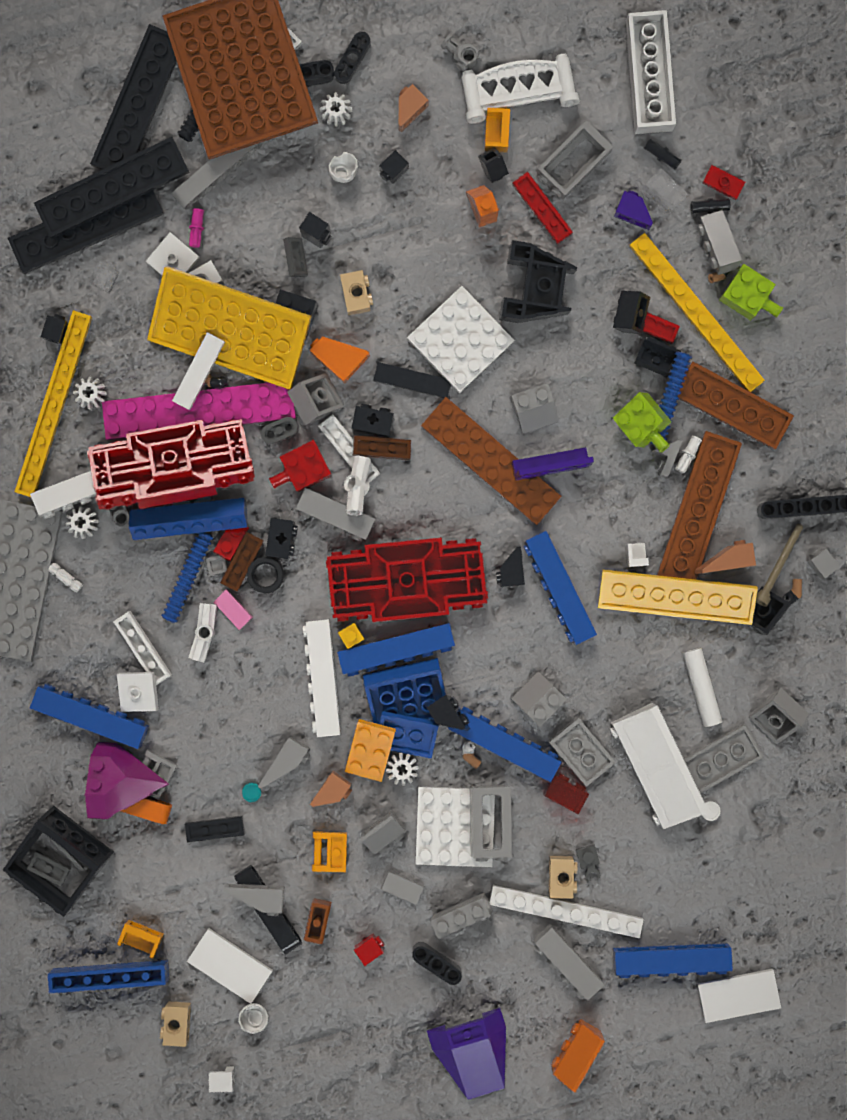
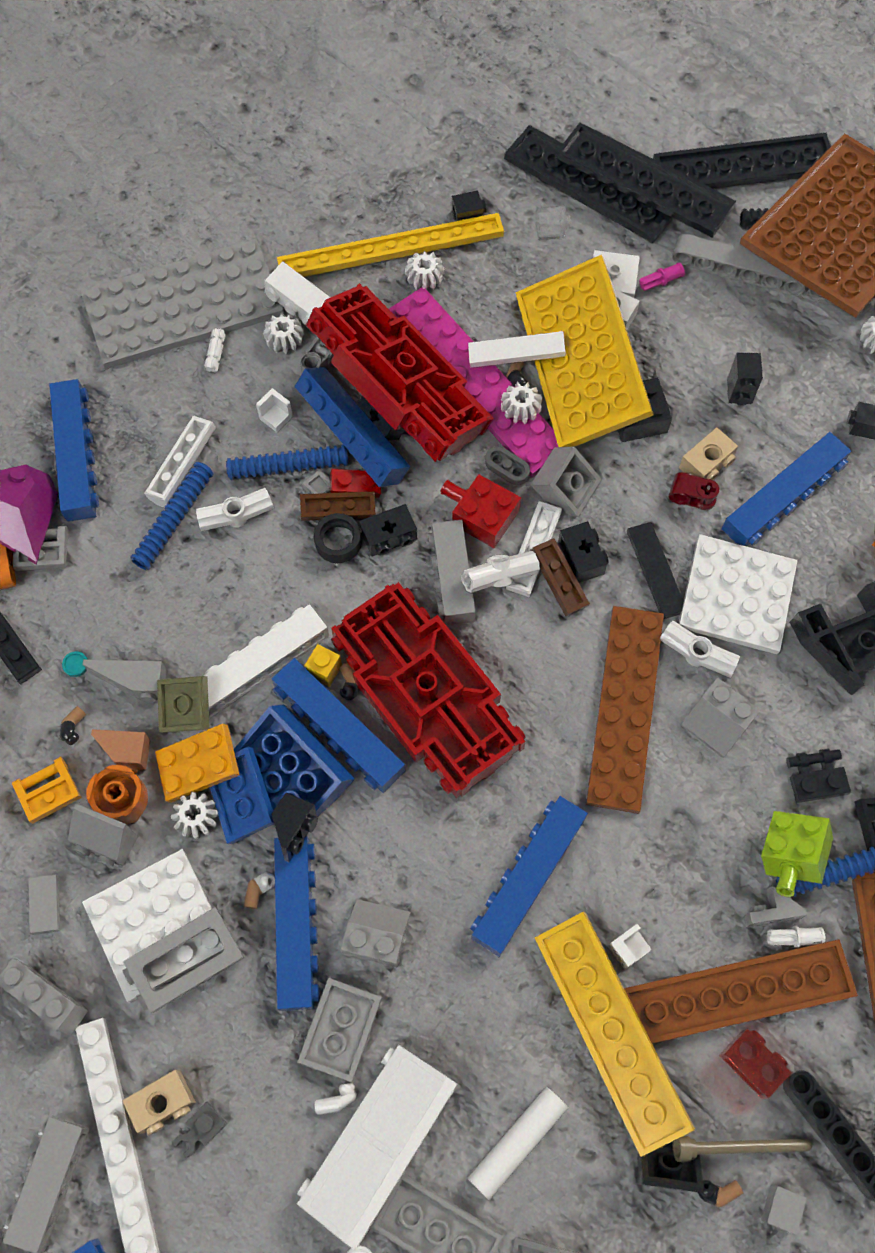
camera: 55 degrees right, 20 degrees down
(137, 691) = (127, 480): white plate -> none
(142, 563) = (274, 410): none -> white panel
(182, 675) = (172, 515): none -> blue piece
(233, 609) = (279, 528): bright pink slope -> none
(236, 399) = (521, 403): none -> white gear
(293, 817) = (68, 724): none -> arm
(295, 257) = (701, 380): dark grey plate -> none
(327, 739) = (183, 704): none -> olive tile
(338, 357) = (628, 480): orange slope -> none
(343, 167) = (827, 373): white hair -> none
(364, 820) = (109, 783): none -> orange brick
(371, 322) = (691, 491): none -> dark red piece
(375, 627) = (350, 688): none -> arm
(410, 257) = (786, 490): none -> blue brick
(494, 385) = (713, 658): none -> white piece
(511, 570) = (514, 803): black slope -> none
(551, 463) = (670, 775): dark purple fence -> none
(566, 793) = (274, 1040): clear red brick -> none
(610, 374) = (818, 784): none -> black plate
(621, 775) = (336, 1103): none -> white arm
(731, 557) = (712, 1078): nougat slope -> none
(742, 530) = (751, 1069): none -> clear red brick

